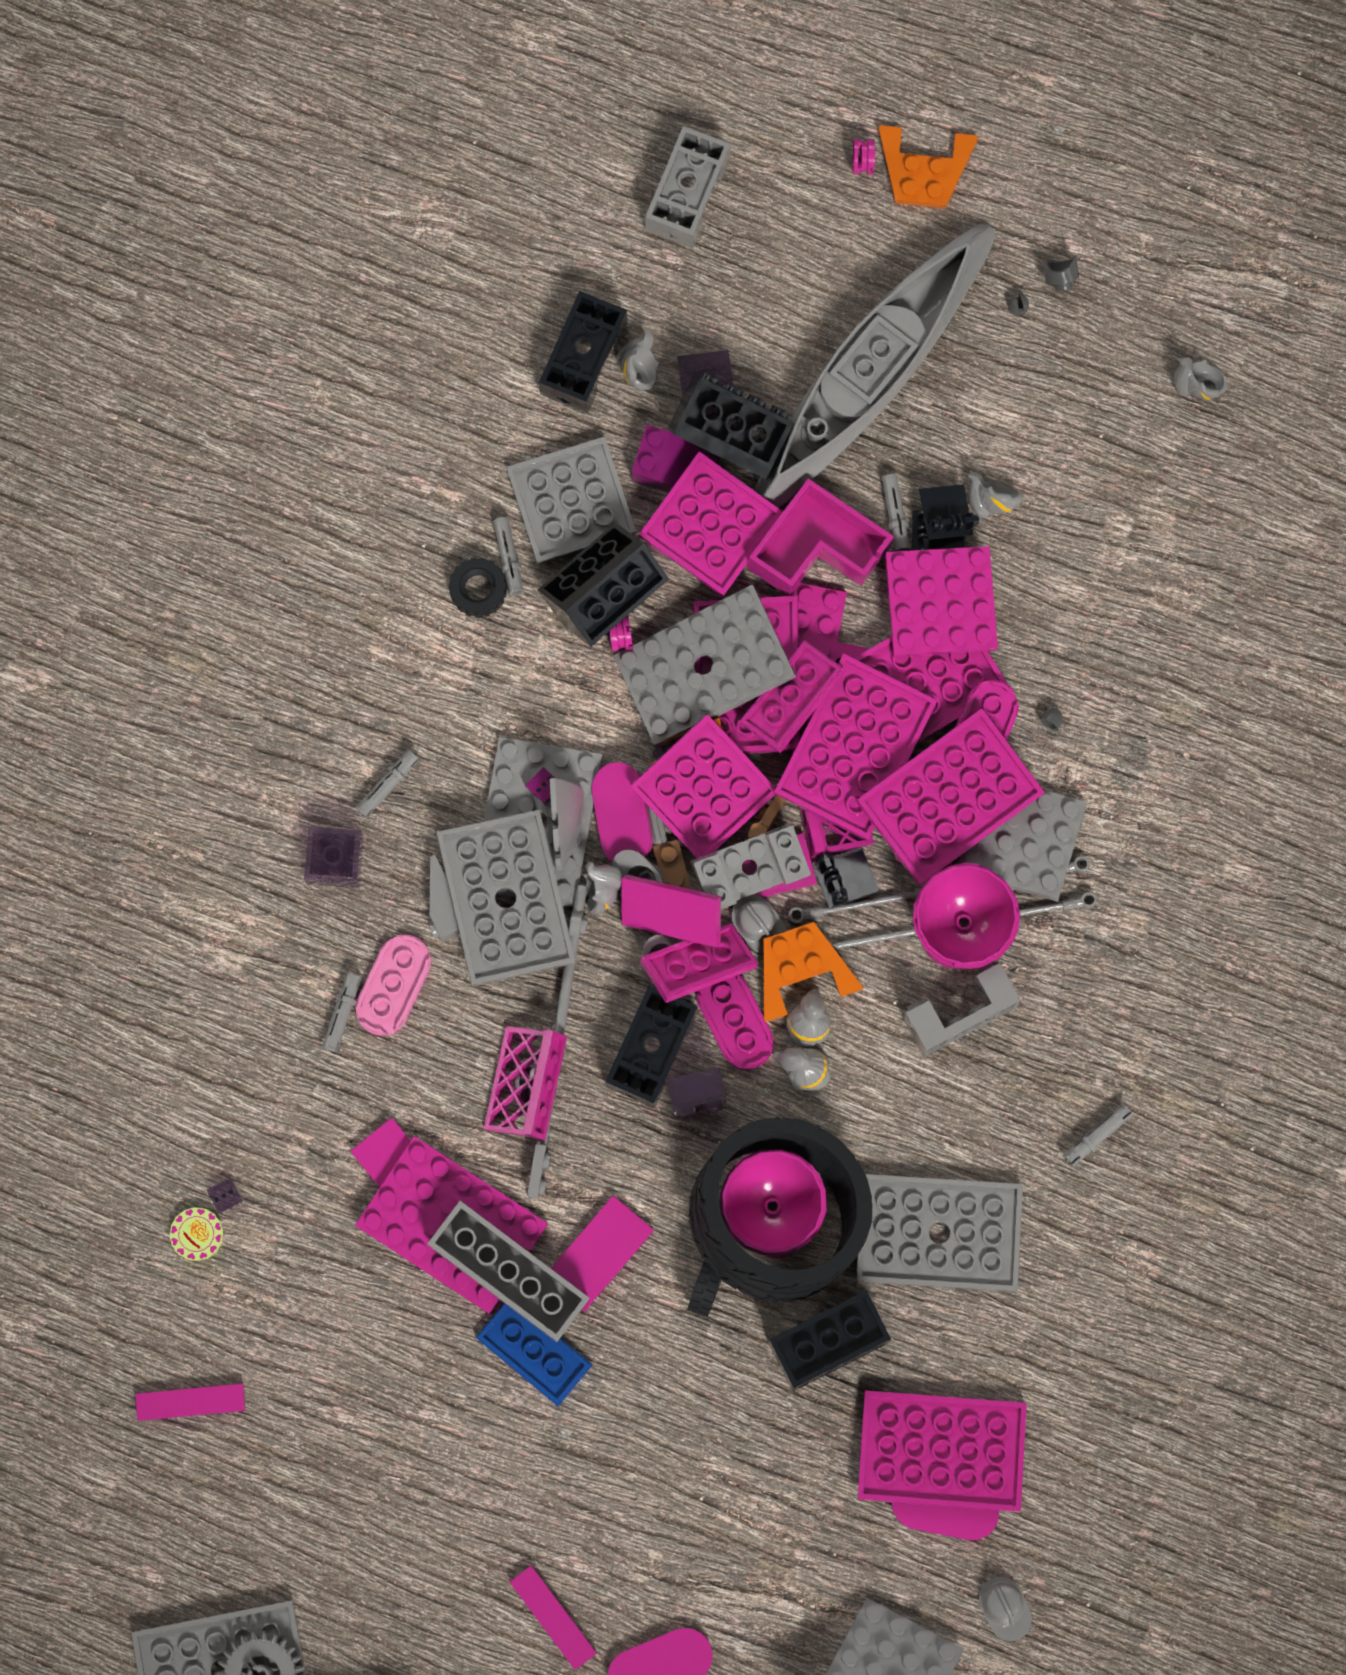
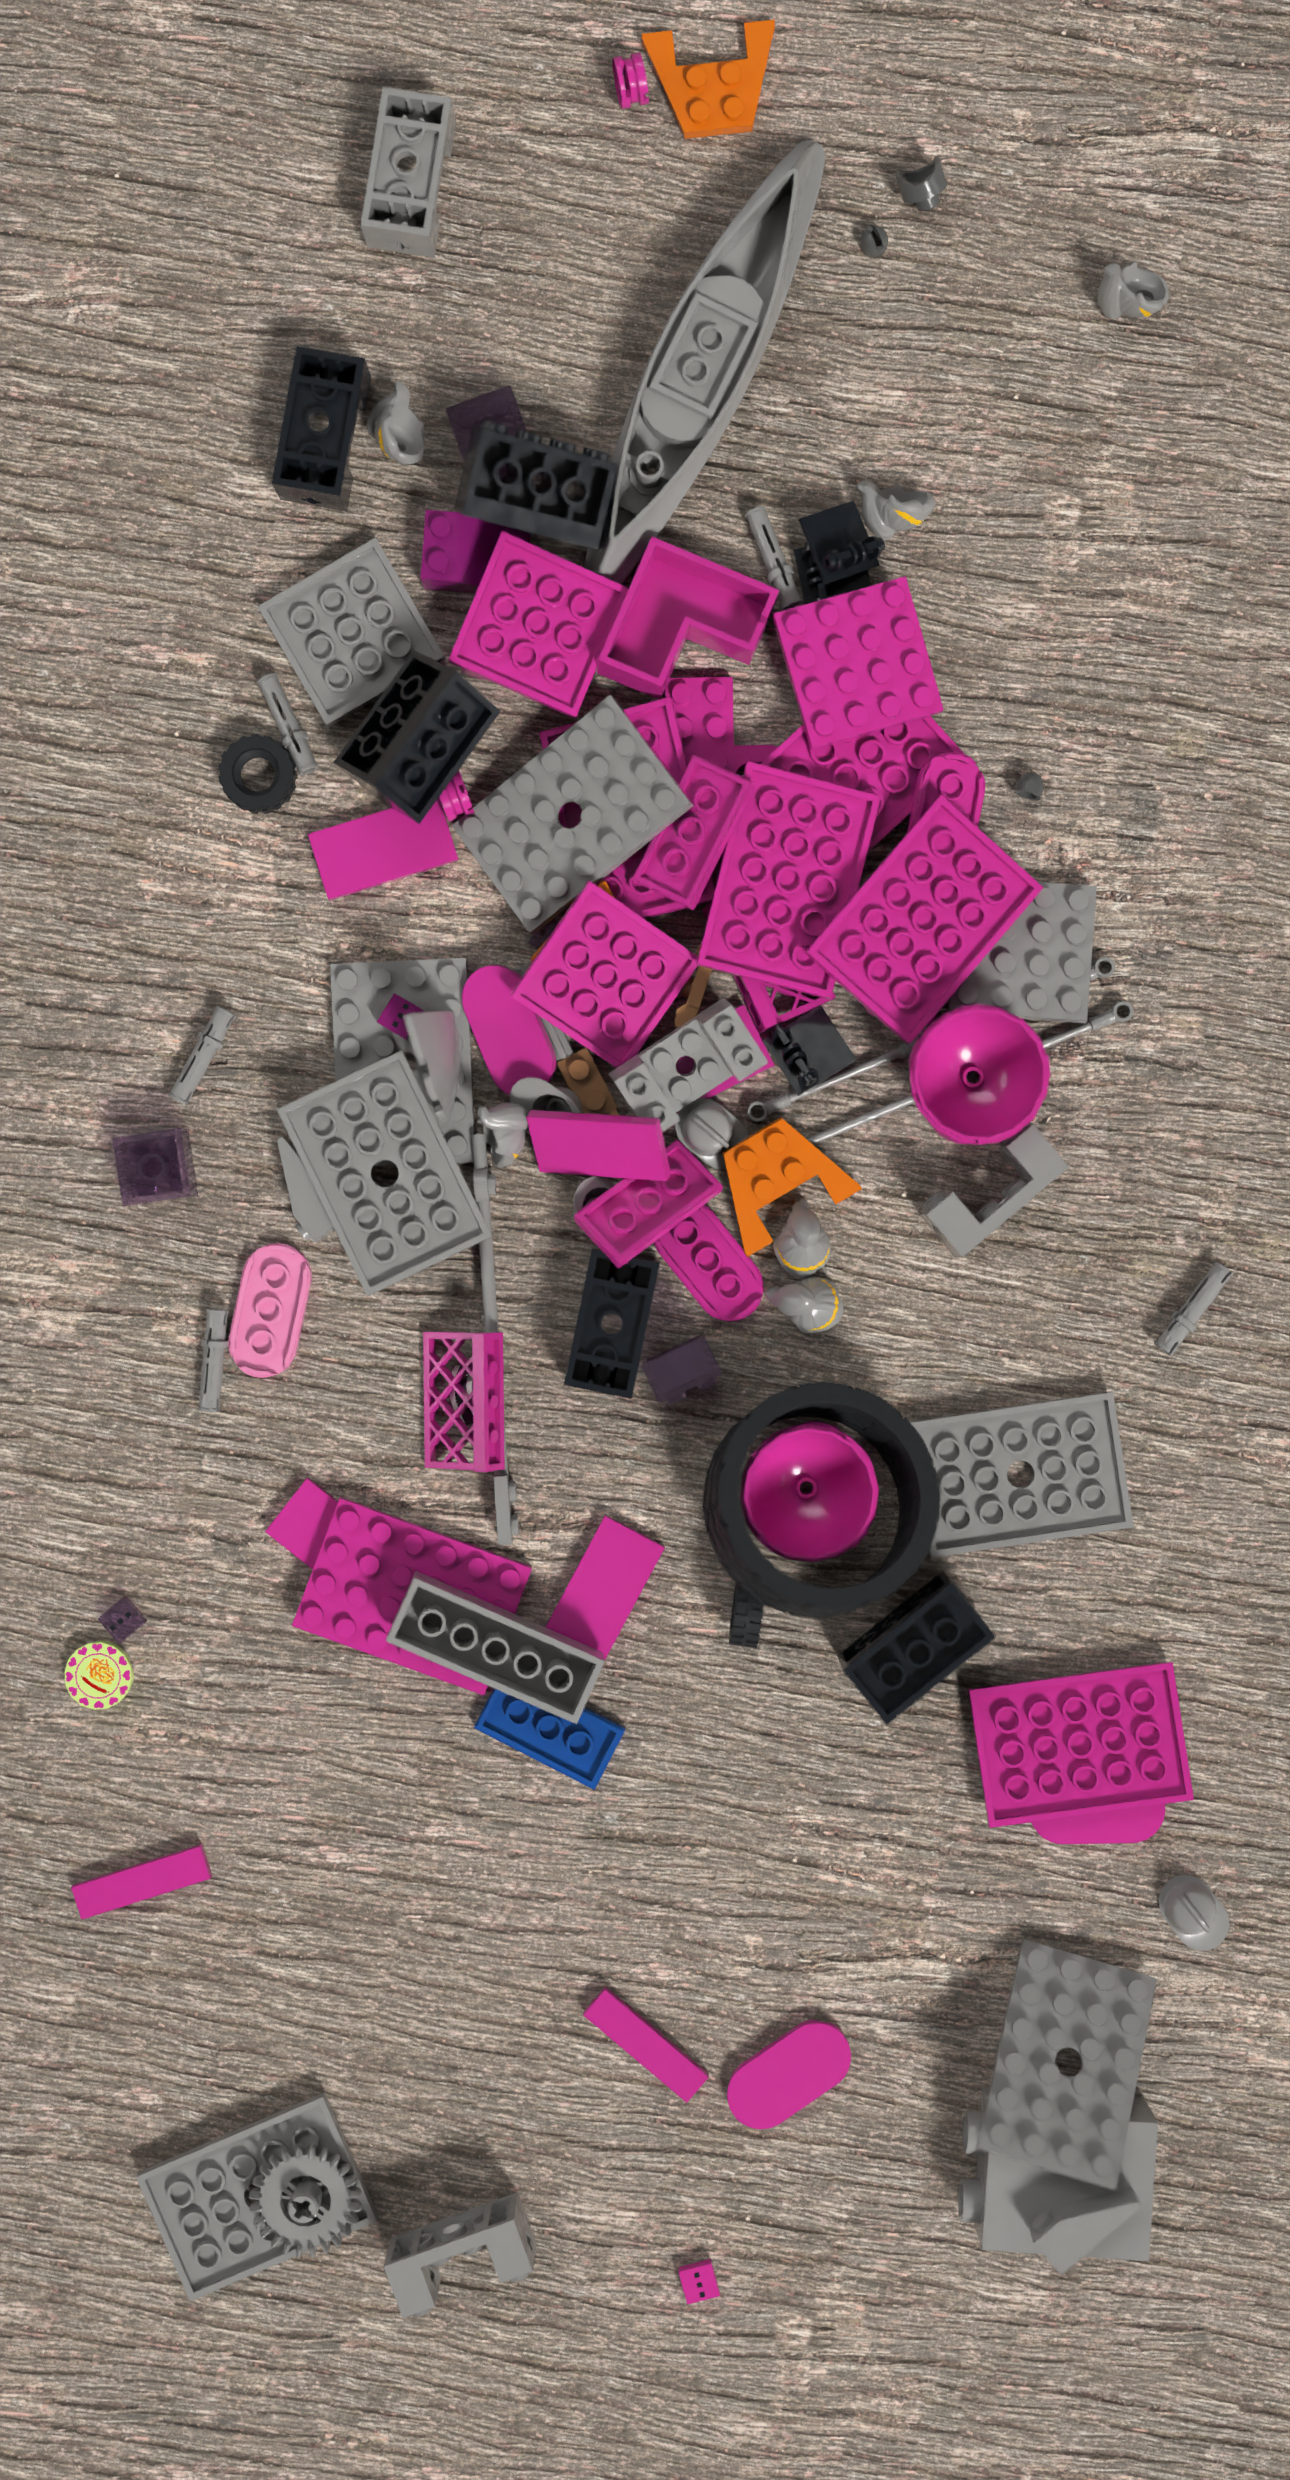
camera: 20 degrees left, 10 degrees up
(557, 662) = (381, 849): none -> dark pink tile

